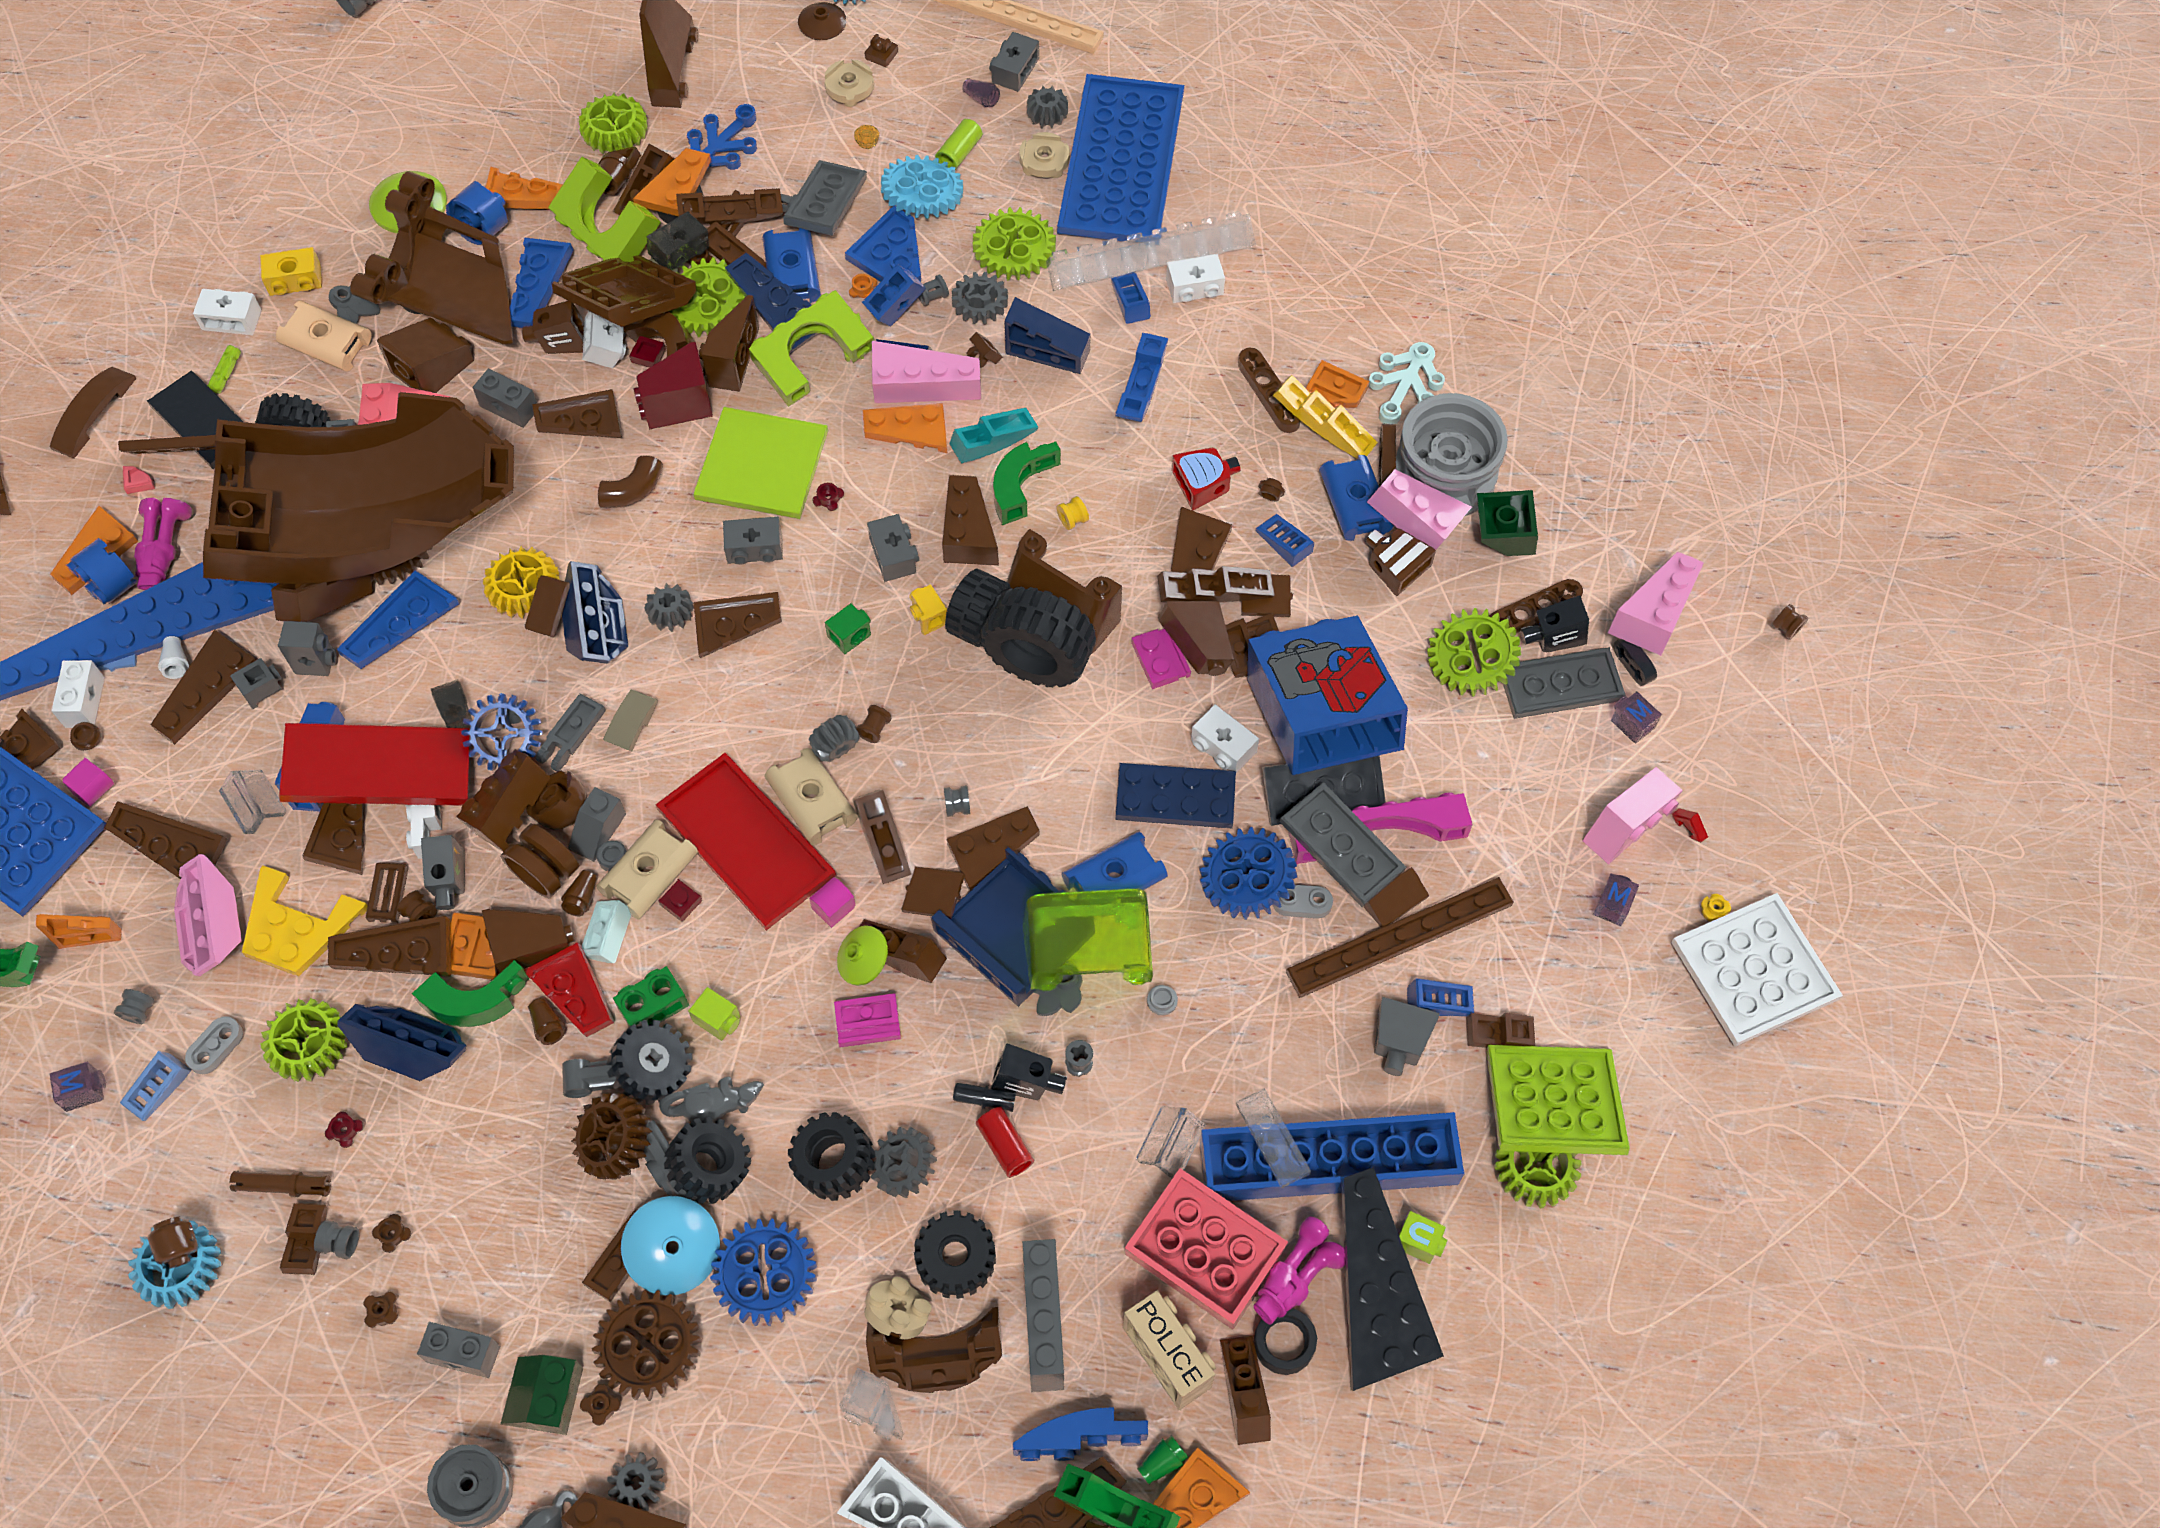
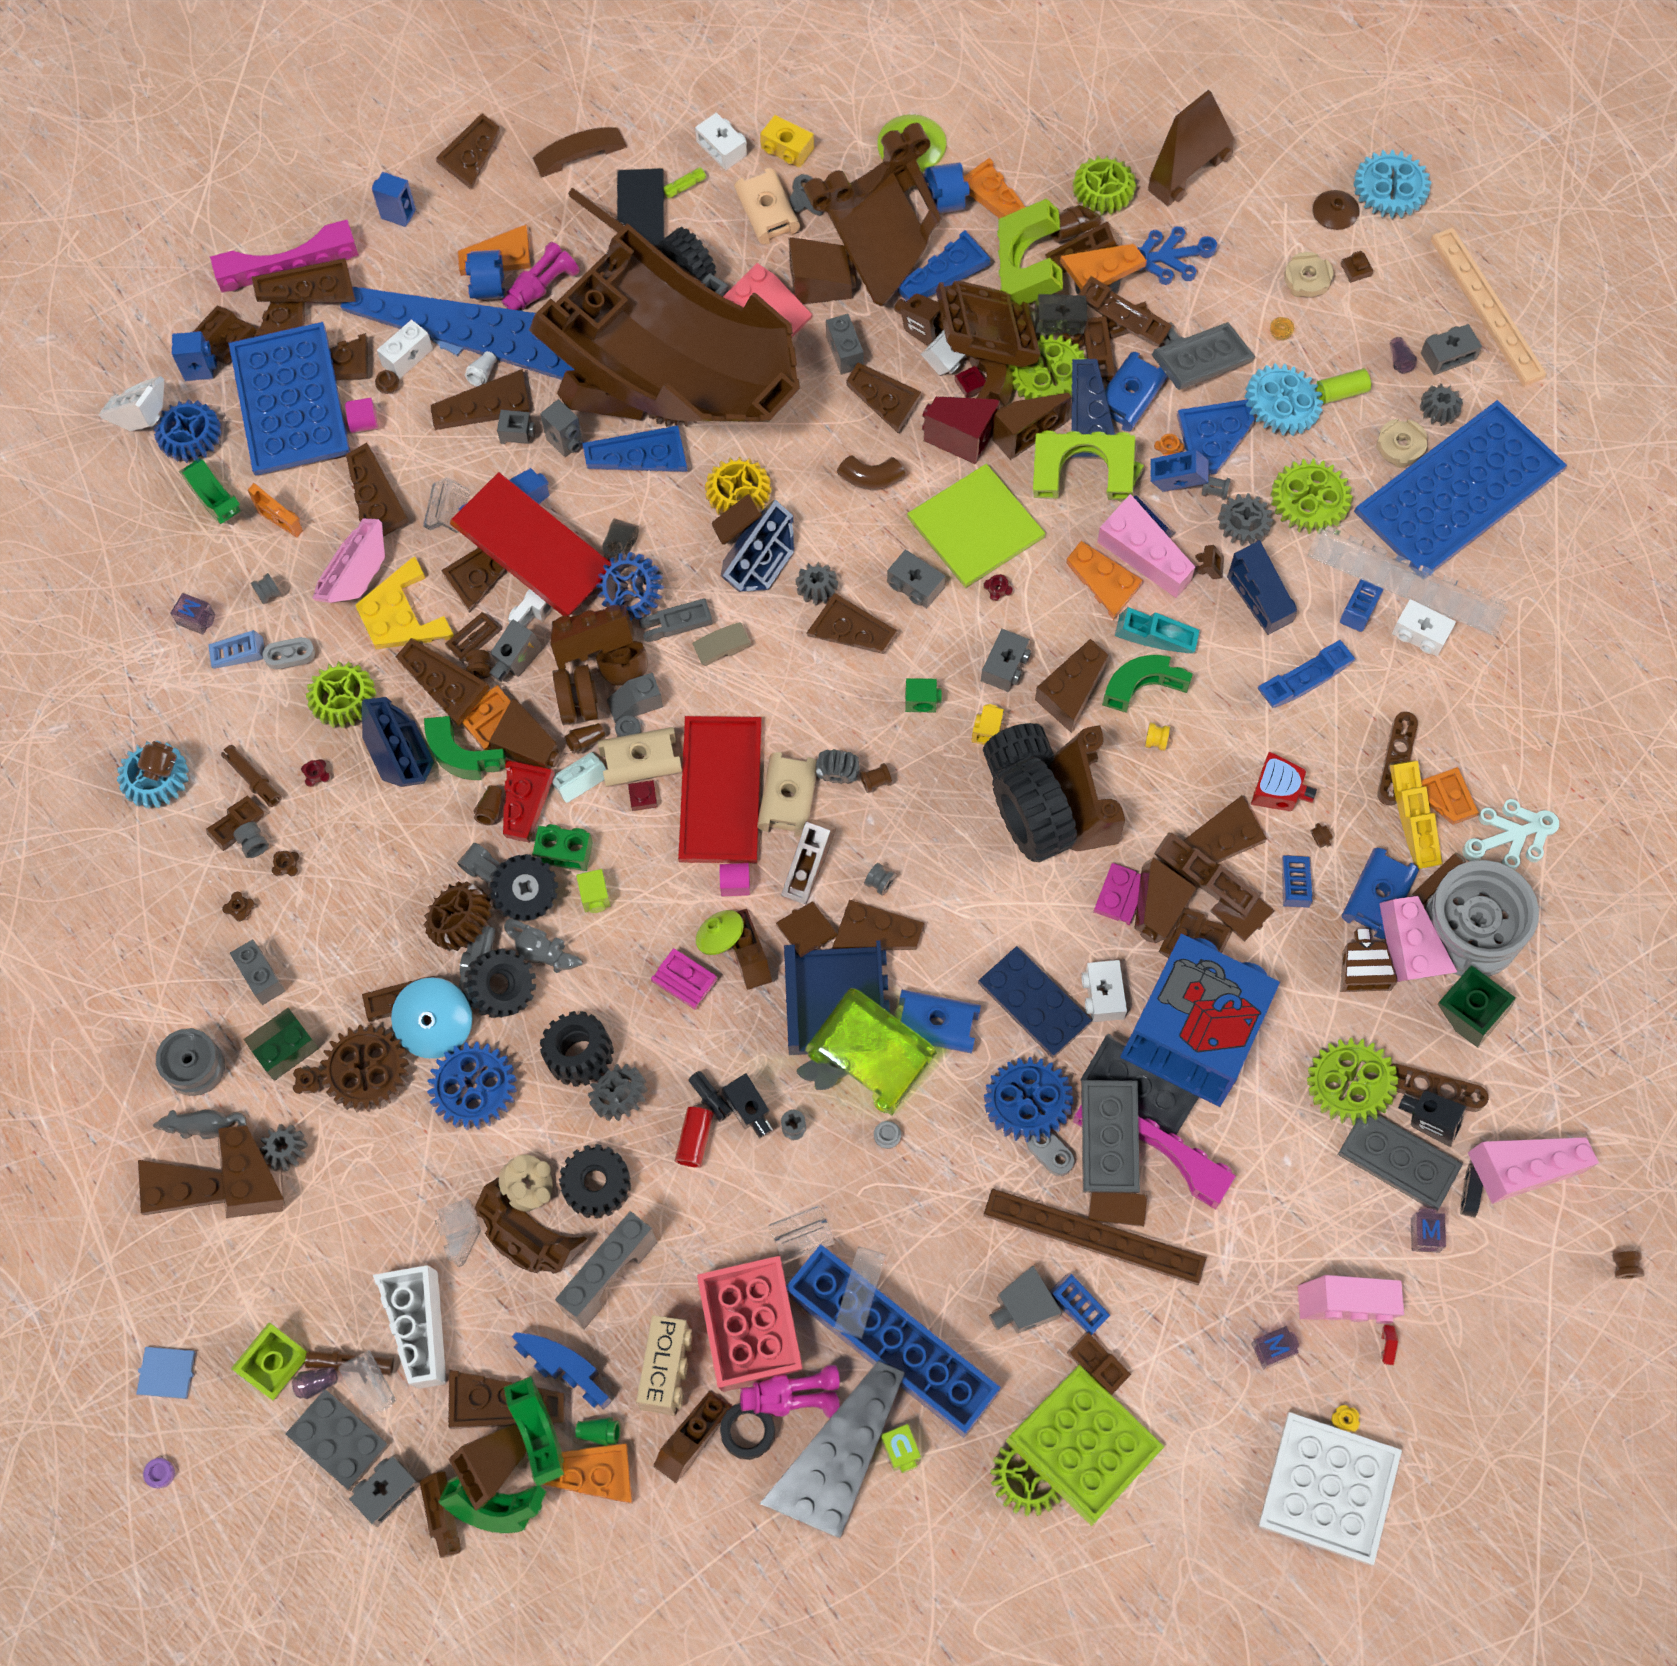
camera: 45 degrees right, 5 degrees up
(136, 480) = (564, 223): coral tile -> none

